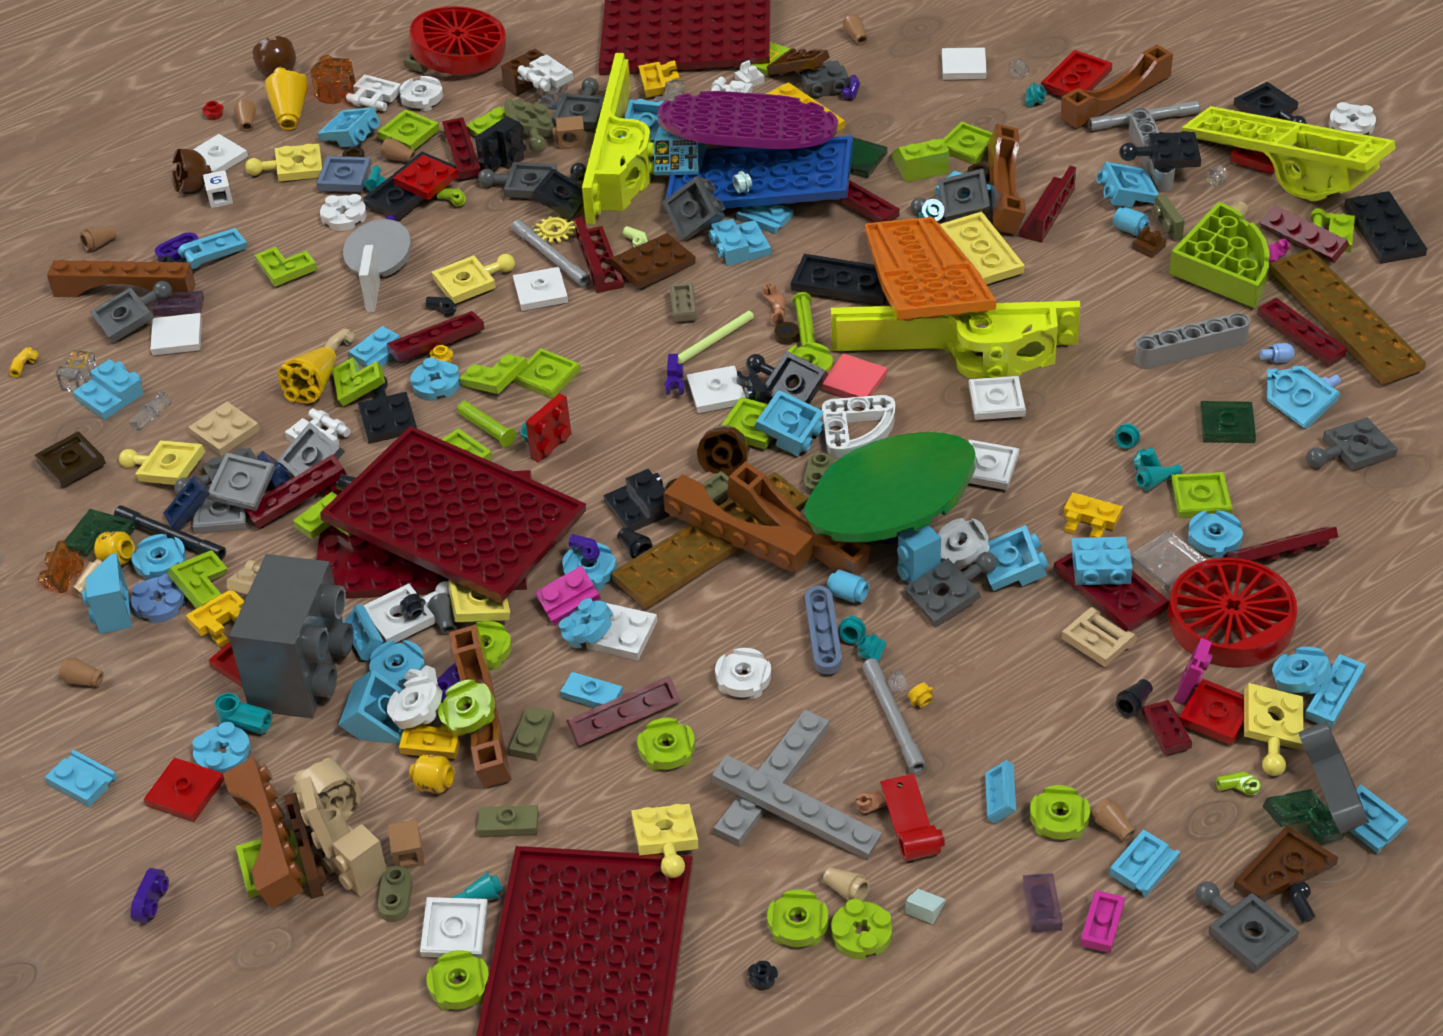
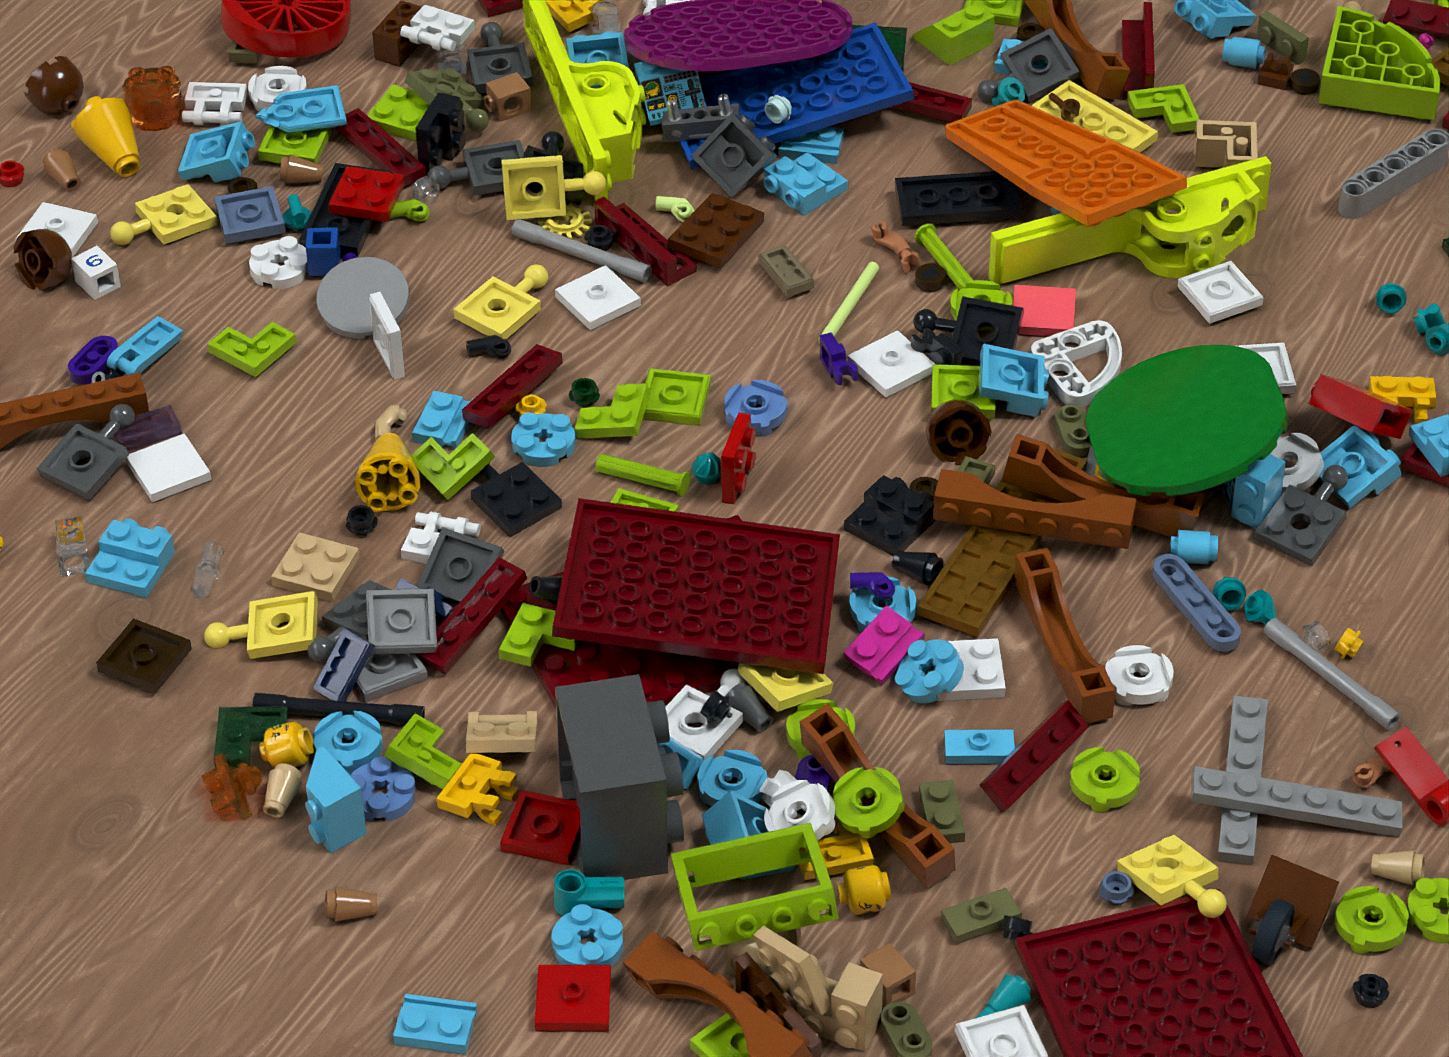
camera: 25 degrees left, 0 degrees up
(273, 404) = (361, 520): none -> black plate
(369, 207) = (322, 250): none -> blue brick
(385, 725) = (749, 857): none -> lime window
(425, 110) = (305, 110): none -> medium azure tile
(473, 189) = (425, 190): none -> clear plate
(484, 353) = (584, 392): none -> dark green plate
(524, 837) = (1015, 927): none -> black plate
(547, 191) = (551, 198): none -> light yellow plate
(569, 247) = (599, 237): none -> black plate
(608, 395) = (765, 393): none -> medium blue plate
(616, 826) = (1116, 888): none -> sand blue plate
(674, 178) = (695, 122): none -> dark grey piece
(698, 648) = (1080, 675): none -> dark orange arch
(731, 891) = (1288, 908): none -> reddish brown plate
(963, 229) = (1066, 106): none -> reddish brown hand
(1039, 512) = (1360, 406): none -> red brick
(1049, 246) = (1169, 101): none -> lime plate
(1068, 284) = (1224, 143): none -> tan brick
(1164, 254) = (1304, 81): none -> dark brown tile

